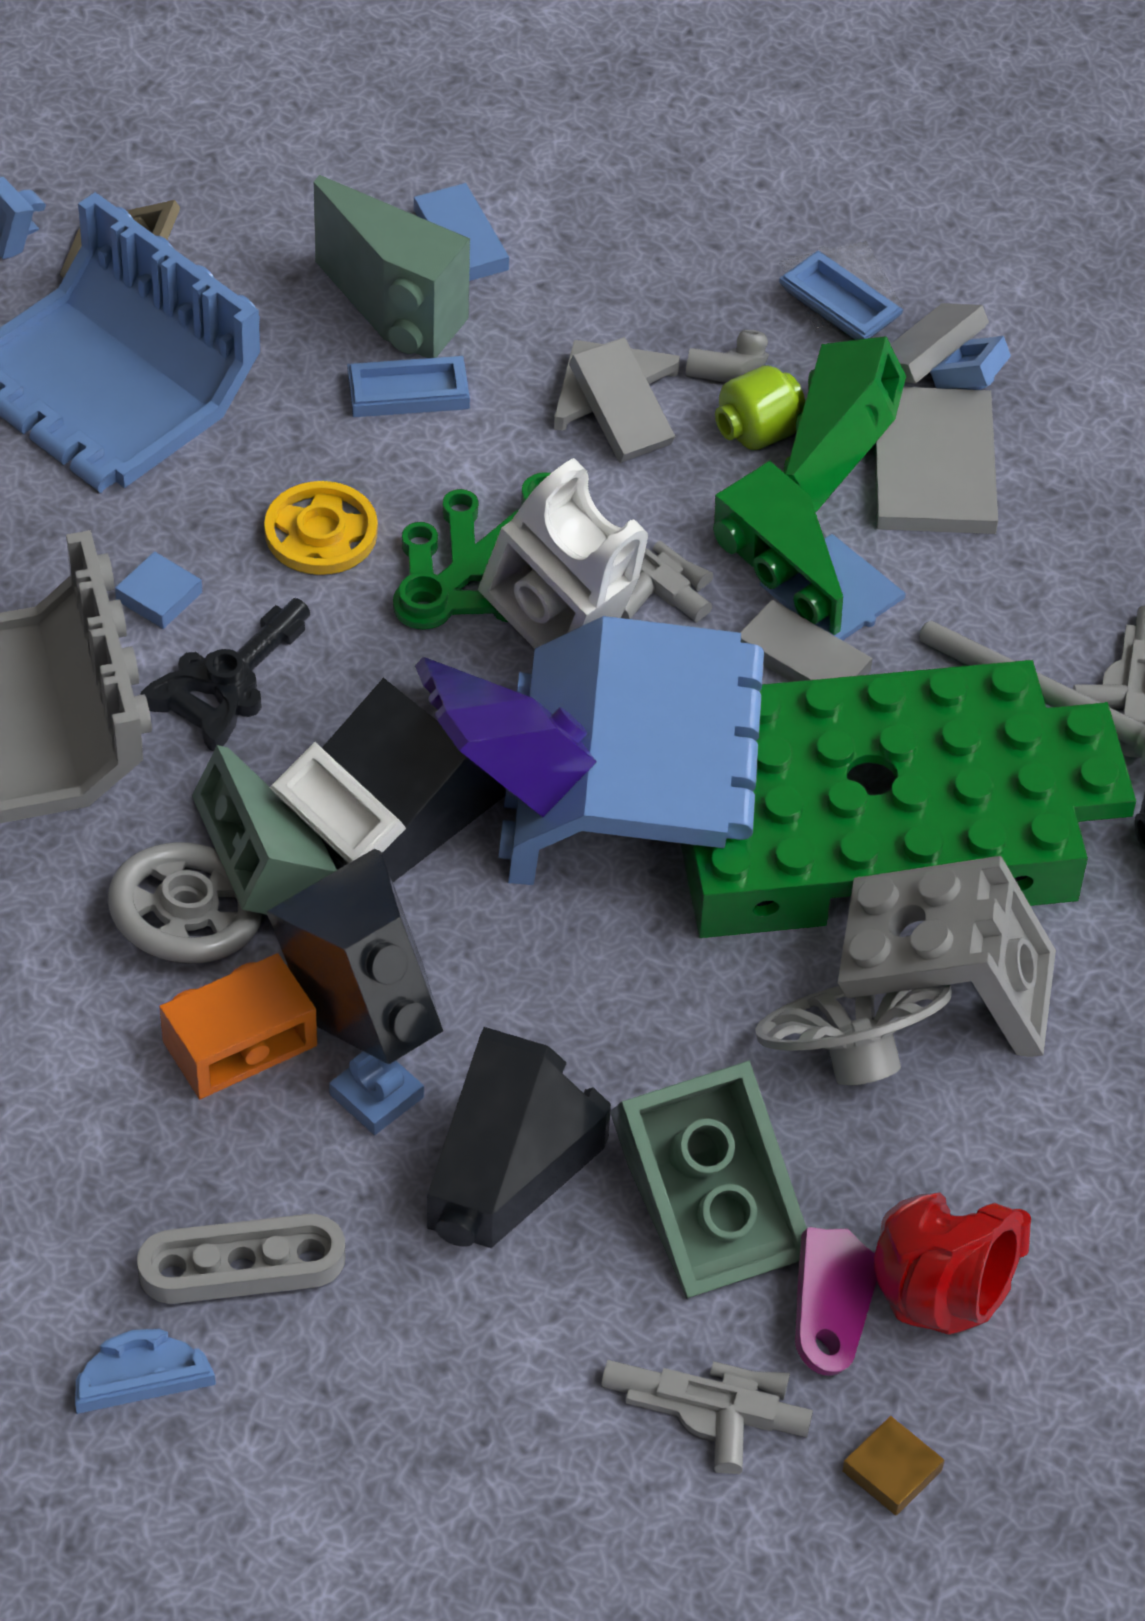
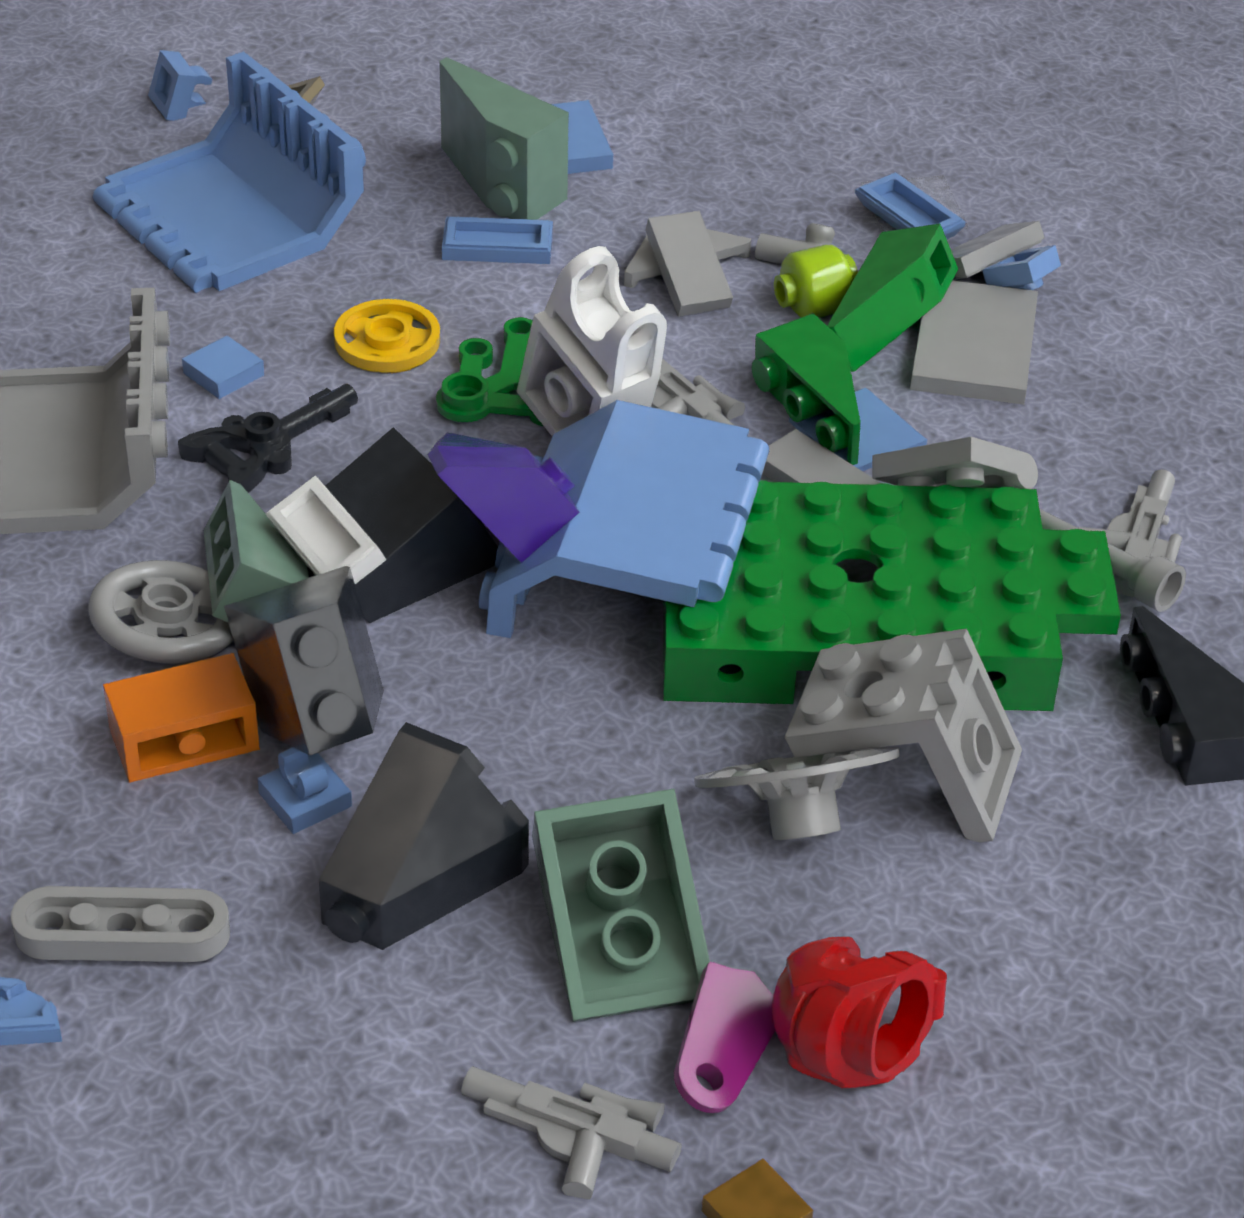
camera: 10 degrees right, 10 degrees down
(951, 646) = (958, 464): none -> light grey plate

